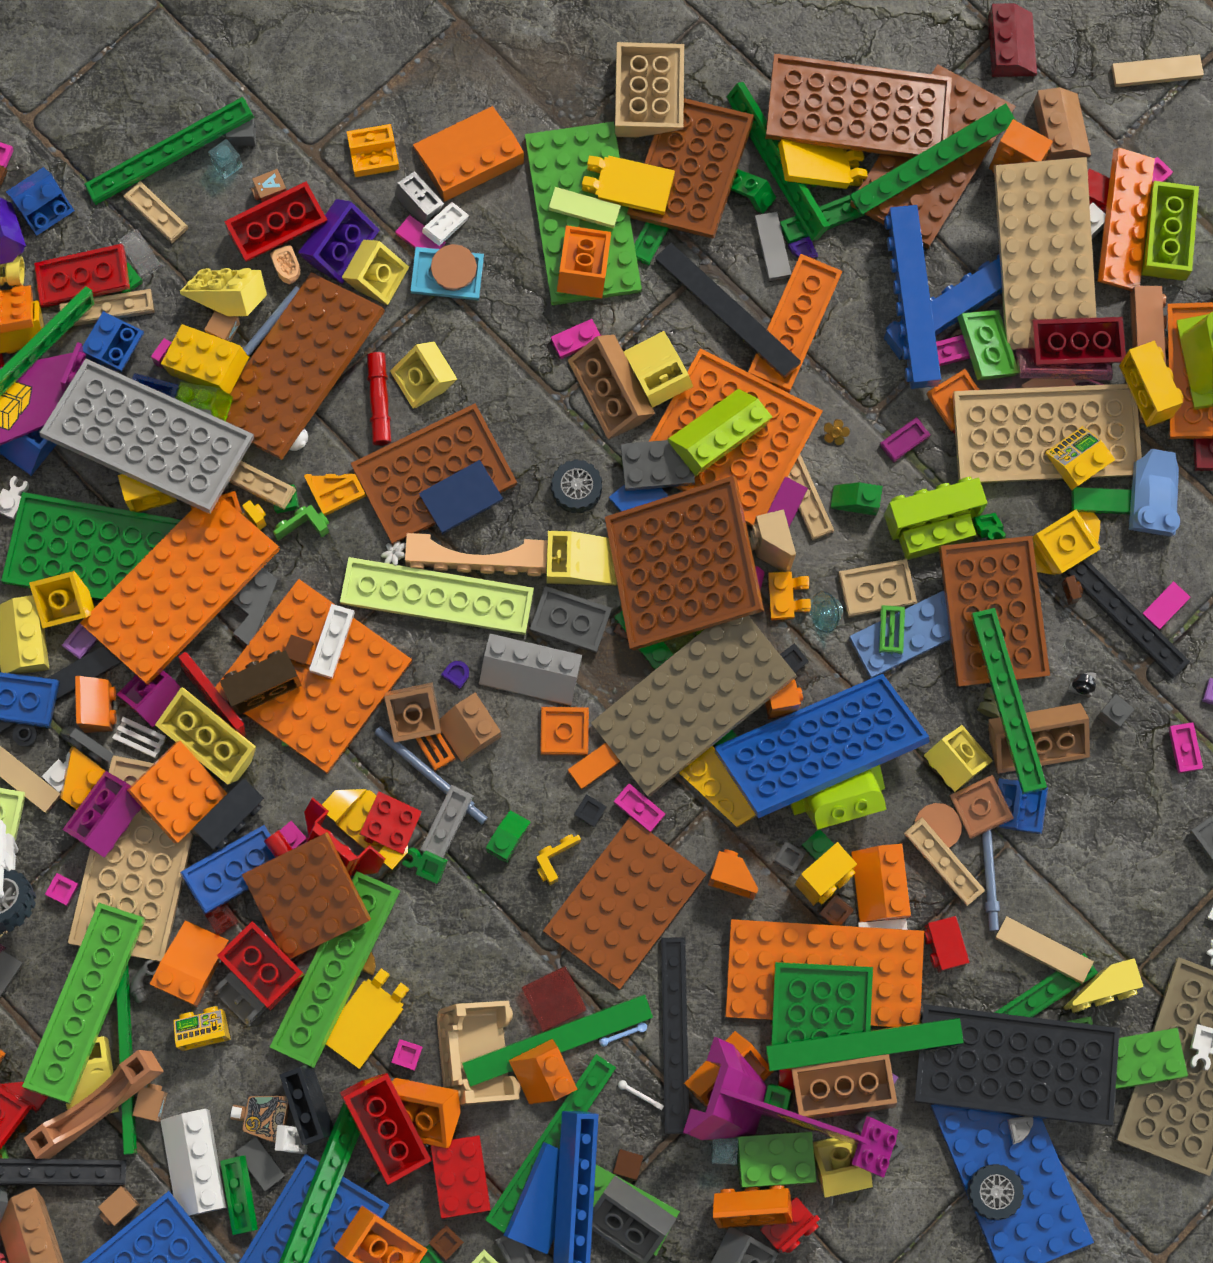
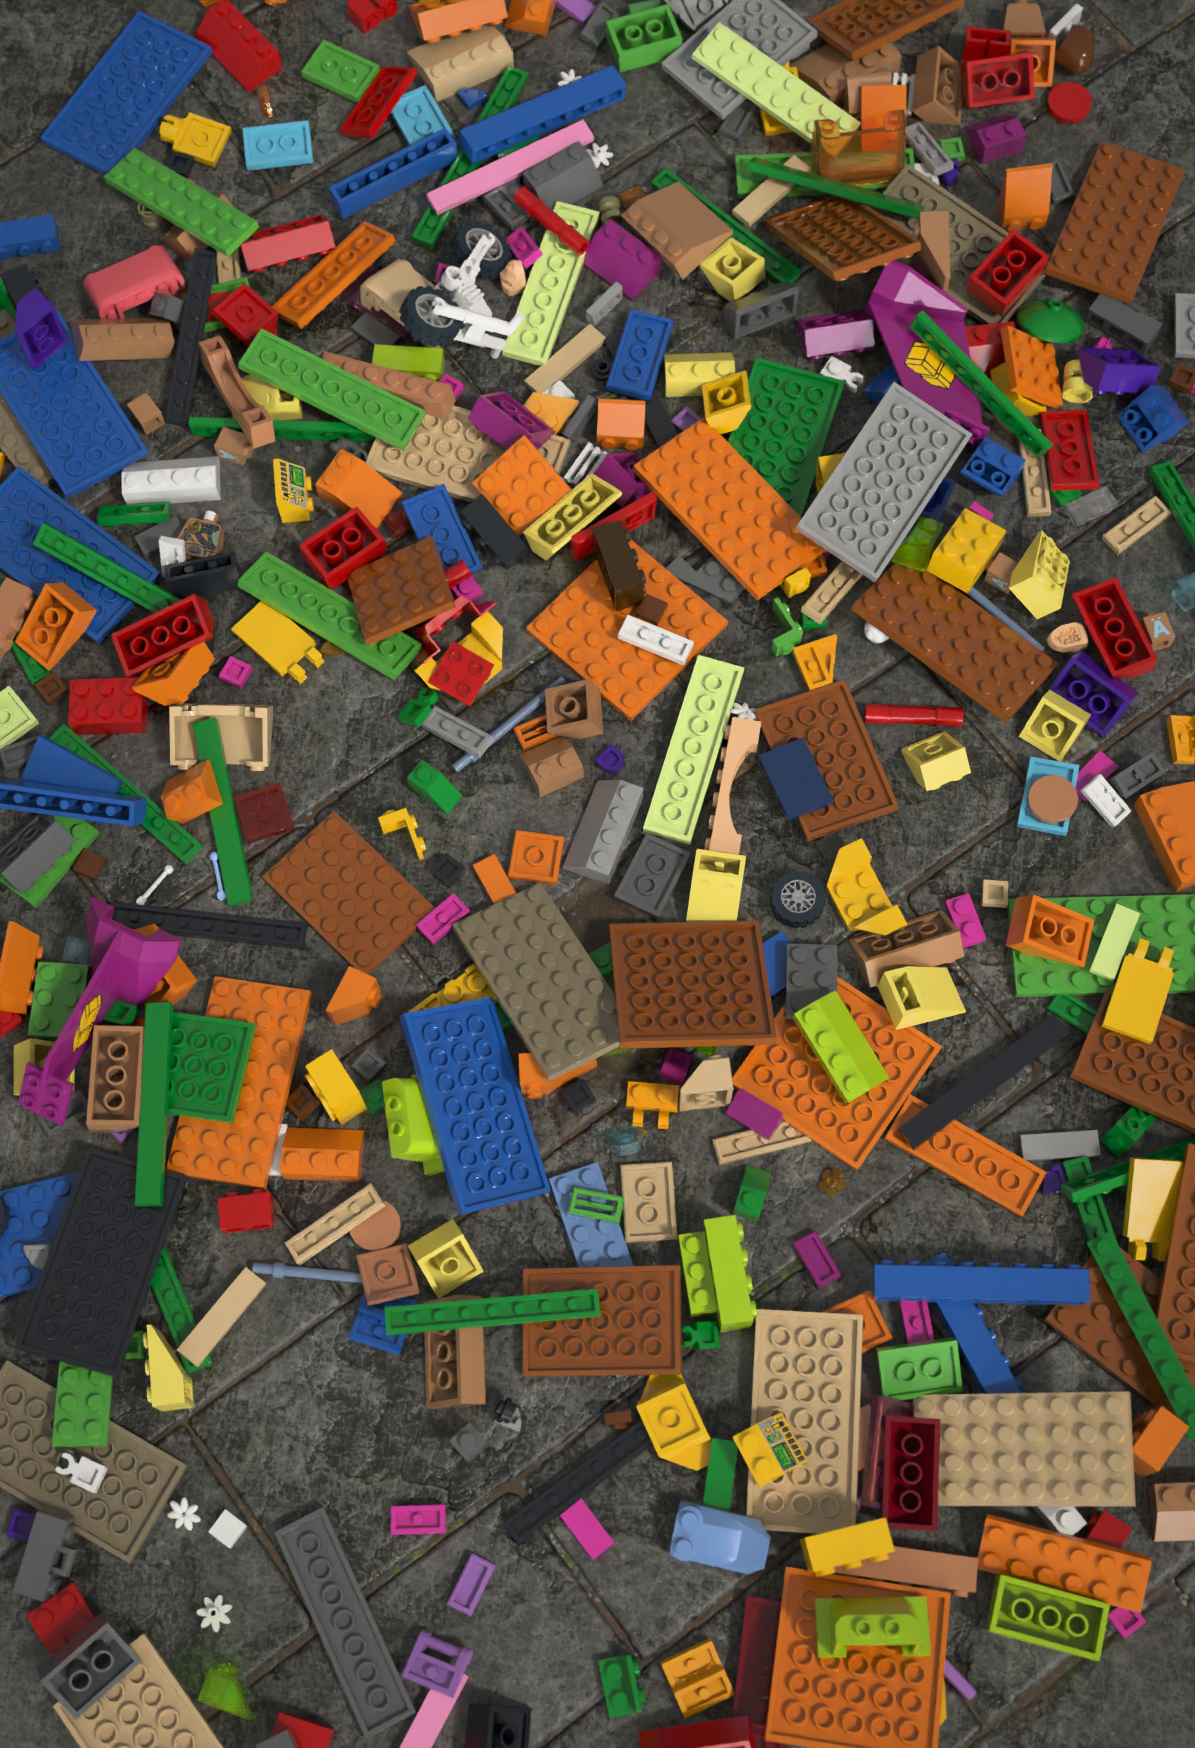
camera: 105 degrees right, 5 degrees down
(37, 938) = (416, 361): none -> lime brick
(72, 928) = (424, 393): none -> nougat arch
(548, 314) = (994, 893): none -> tan plate
(568, 429) = (859, 893): none -> yellow piece

